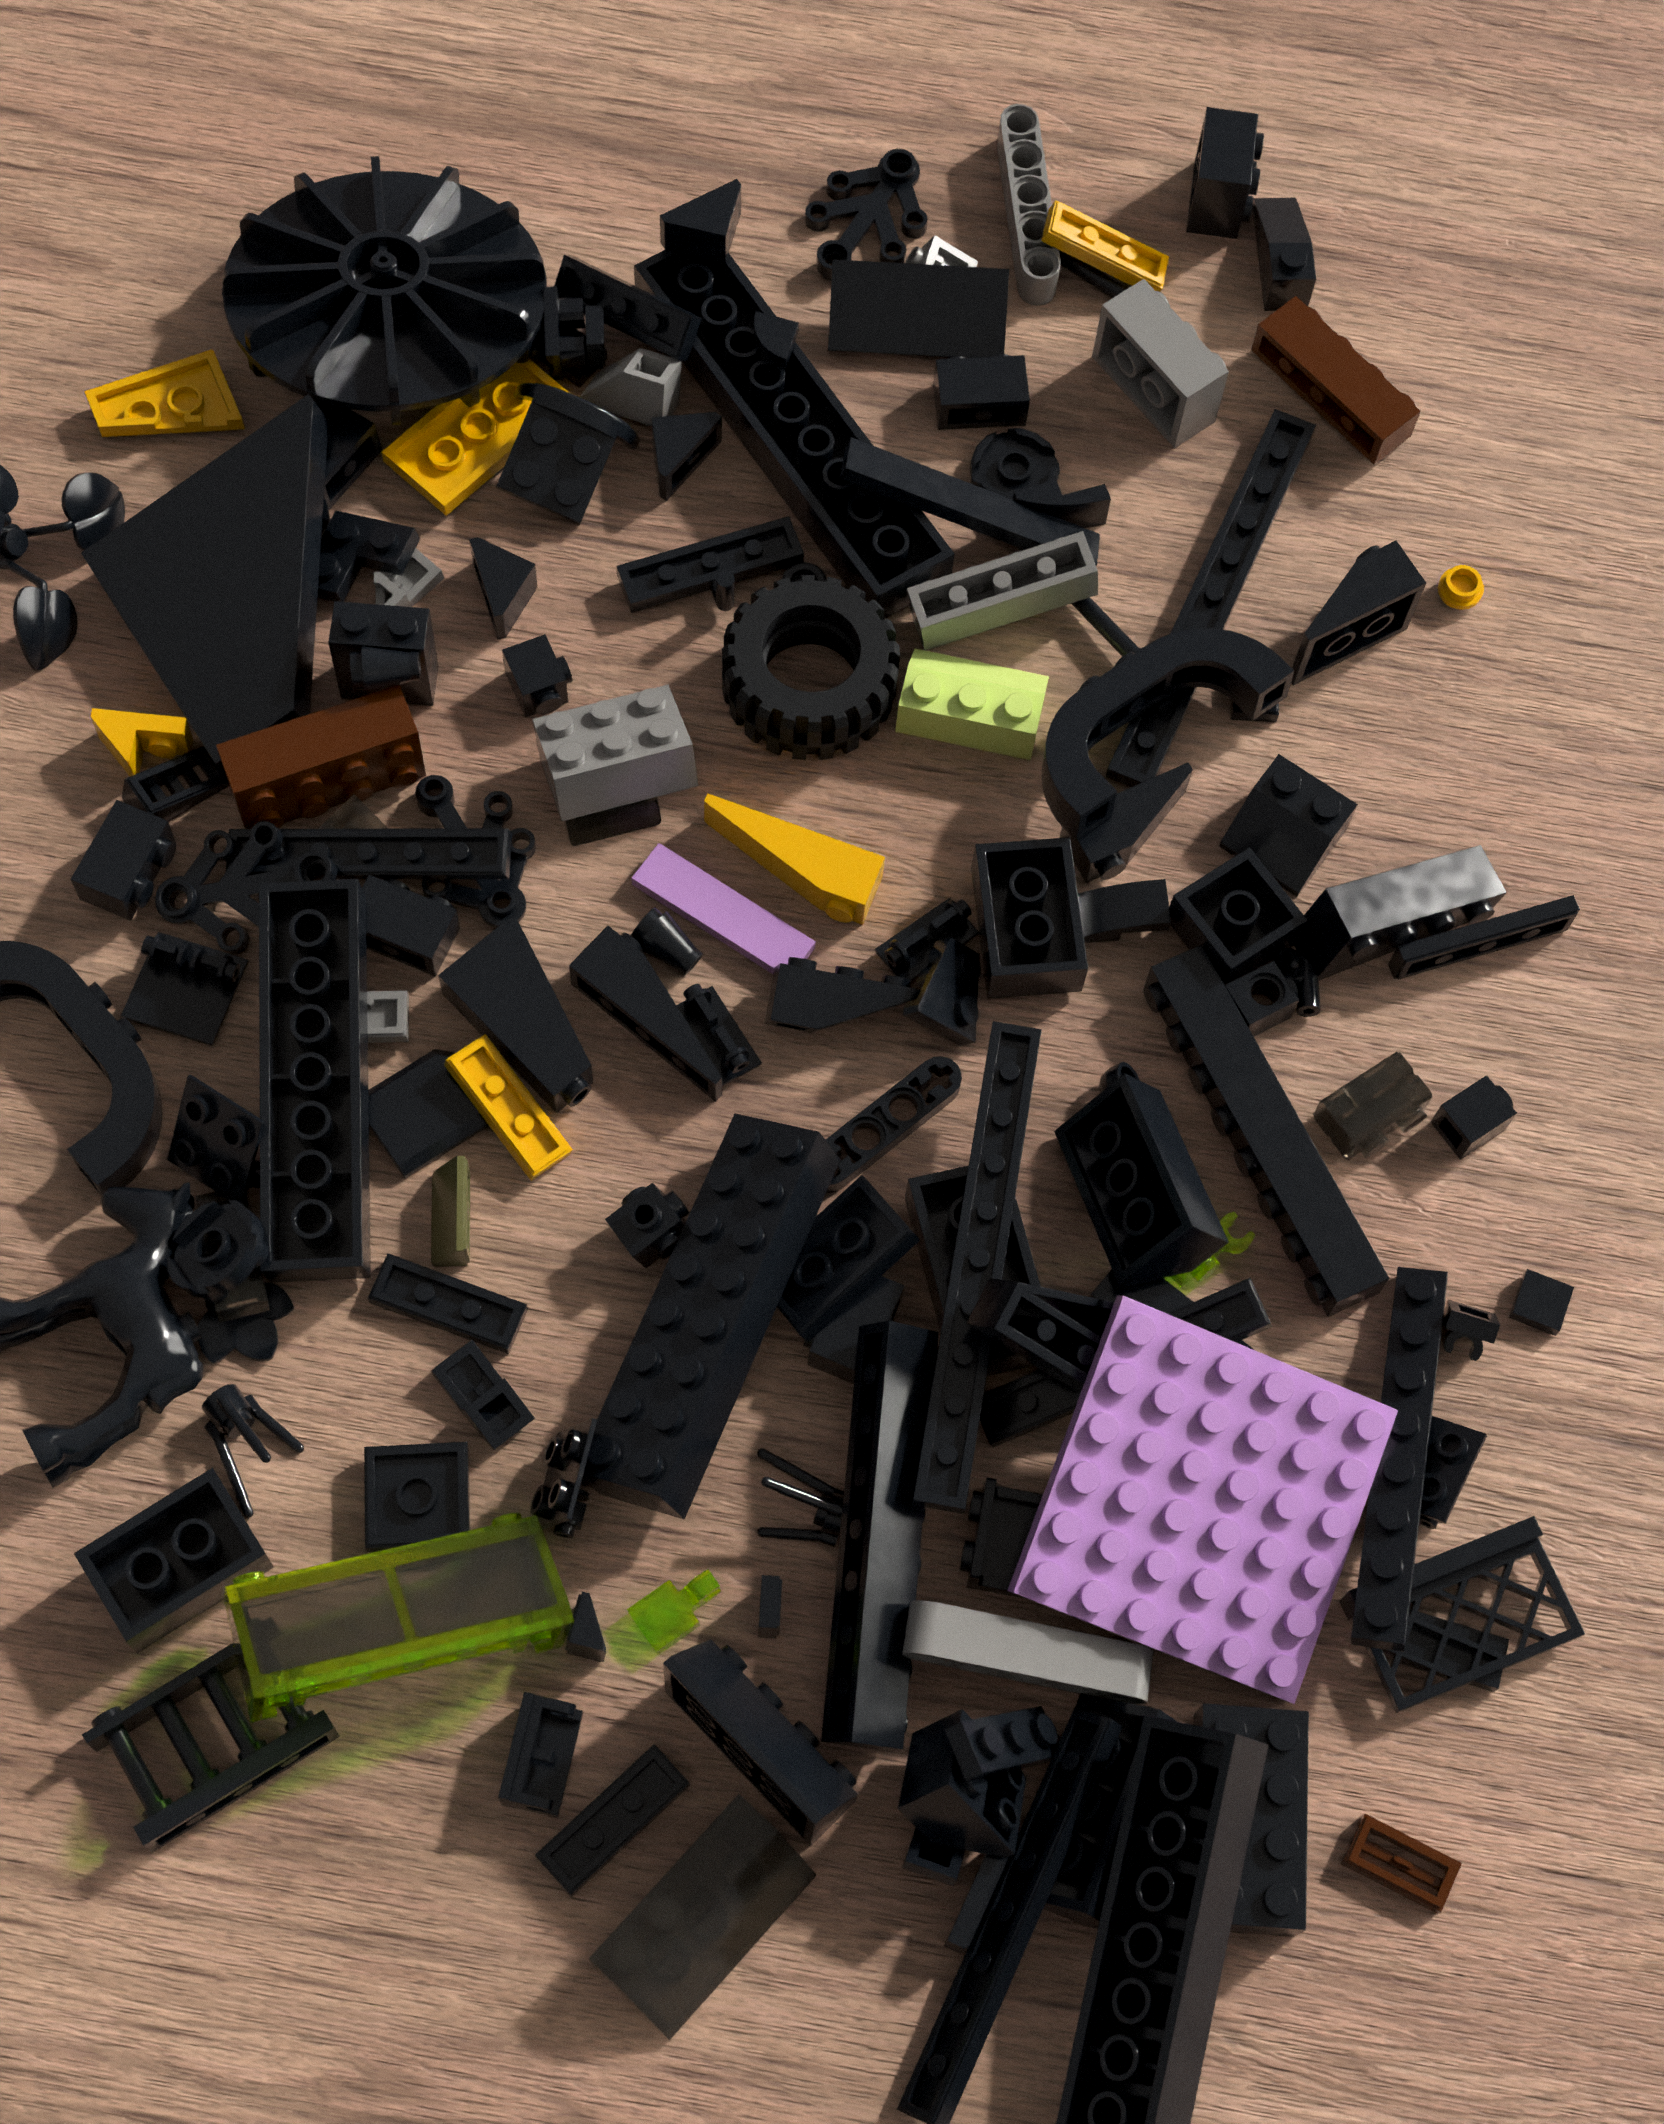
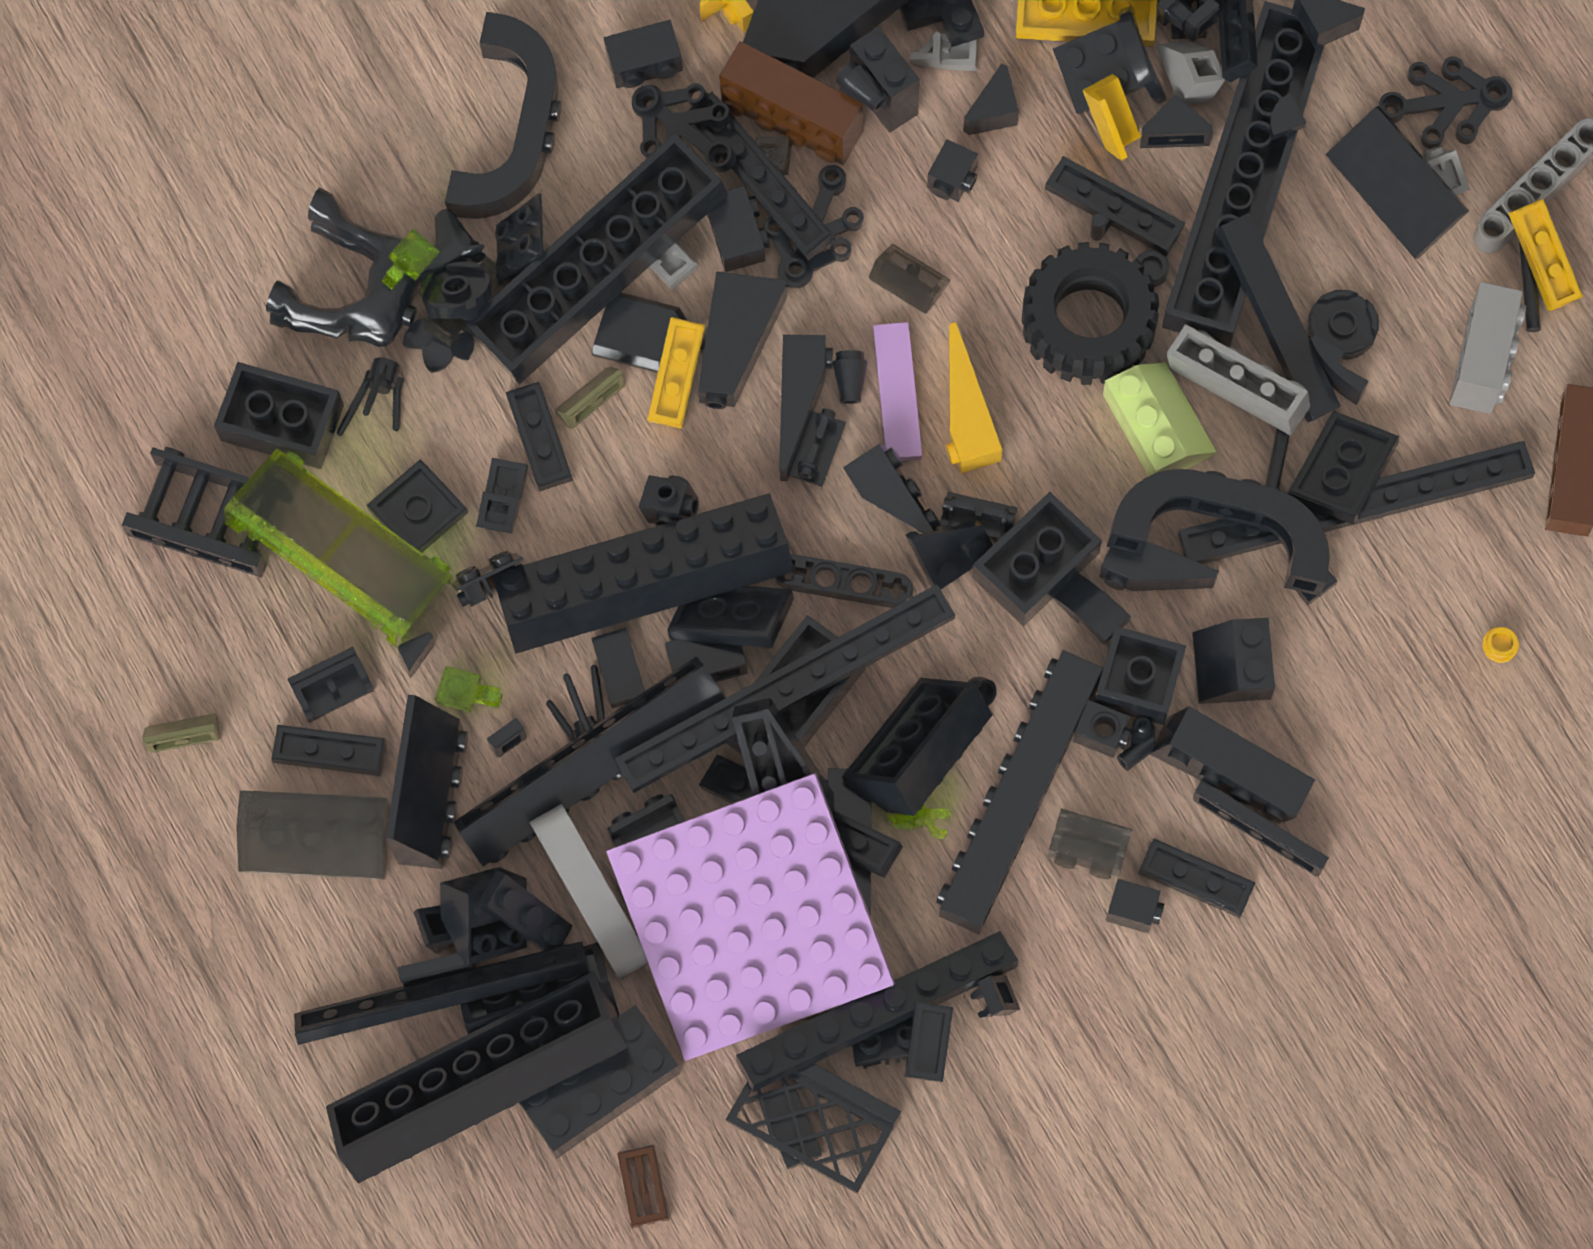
camera: 60 degrees right, 5 degrees up
(136, 1265) = (409, 258): none -> clear neon green plate
(181, 799) = (705, 27): black slope -> none
(184, 988) = (600, 148): black hinge -> none
(447, 1975) = (181, 733): none -> olive slope
(615, 752) = (937, 252): light grey brick -> none
(620, 489) = (1112, 115): none -> yellow panel
(785, 1425) = (618, 667): none -> black tile
(981, 392) = (1375, 262): black brick -> none
(1169, 575) = (1343, 467): none -> black tile
(1364, 610) = (1414, 592): black slope -> none
(1481, 1427) = (928, 1042): none -> black tile
(1484, 1038) = (1196, 878): none -> black tile
(1541, 1302) = (1050, 1030): black tile -> none

